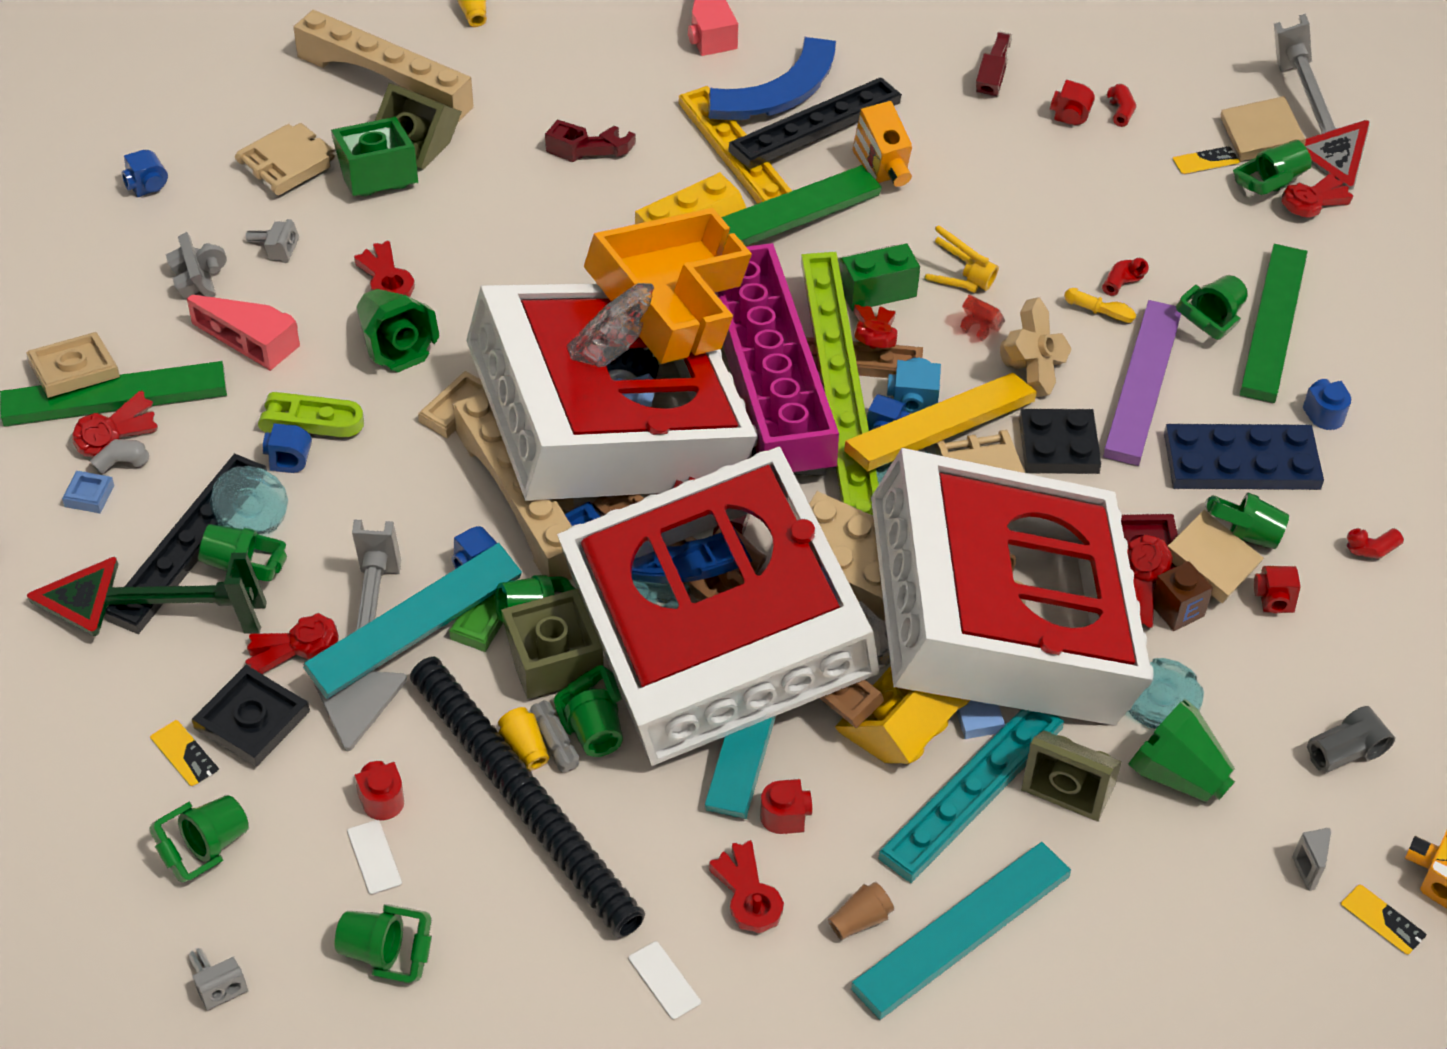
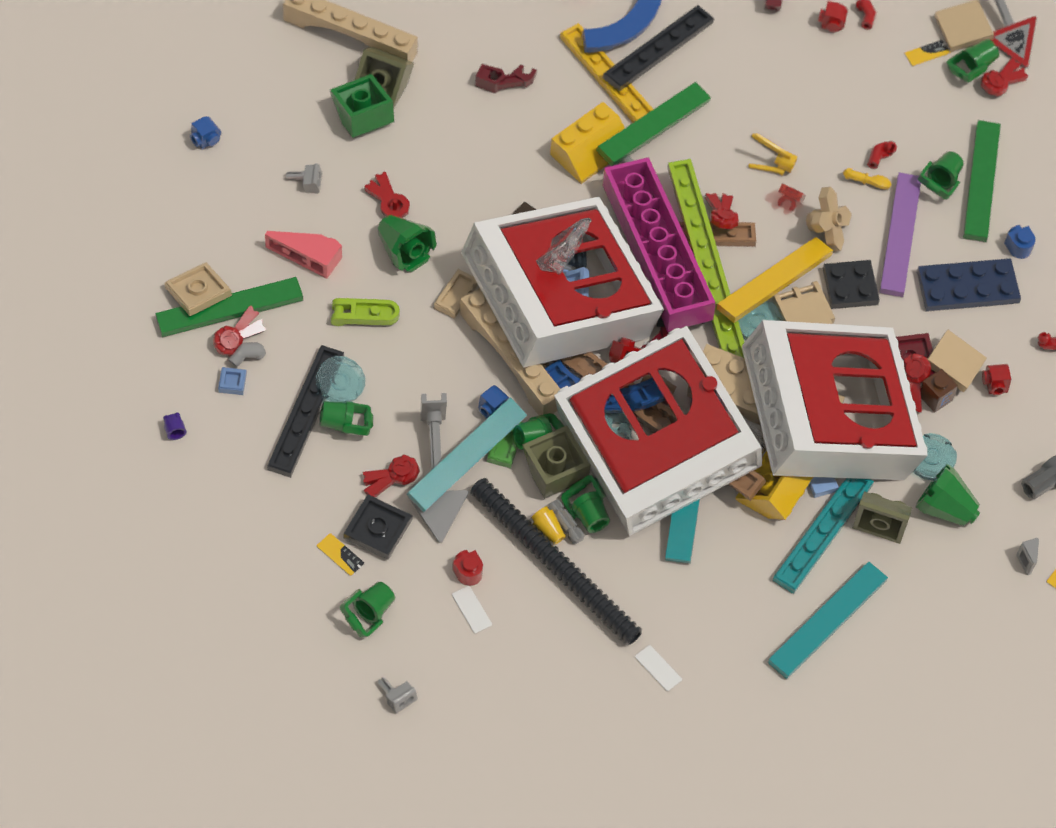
camera: 10 degrees left, 10 degrees up
(86, 594) = (254, 455): dark green piece -> none
(194, 265) = (254, 198): light grey hips -> none
(287, 157) = (299, 109): tan plate -> none
(287, 448) = (356, 338): blue plate -> none
(378, 940) = (486, 662): green piece -> none
(686, 269) = (593, 192): light orange piece -> none
(753, 904) = (704, 617): red piece -> none
(785, 806) = (714, 554): red plate -> none
(863, 910) = (769, 614): medium nougat cone -> none
(879, 276) = (718, 168): green slope -> none
(883, 144) = (709, 66): light orange torso -> none
(885, 410) = (738, 277): blue plate -> none
(915, 383) = (754, 253): dark azure brick -> none
(1251, 520) = (976, 332): green piece -> none

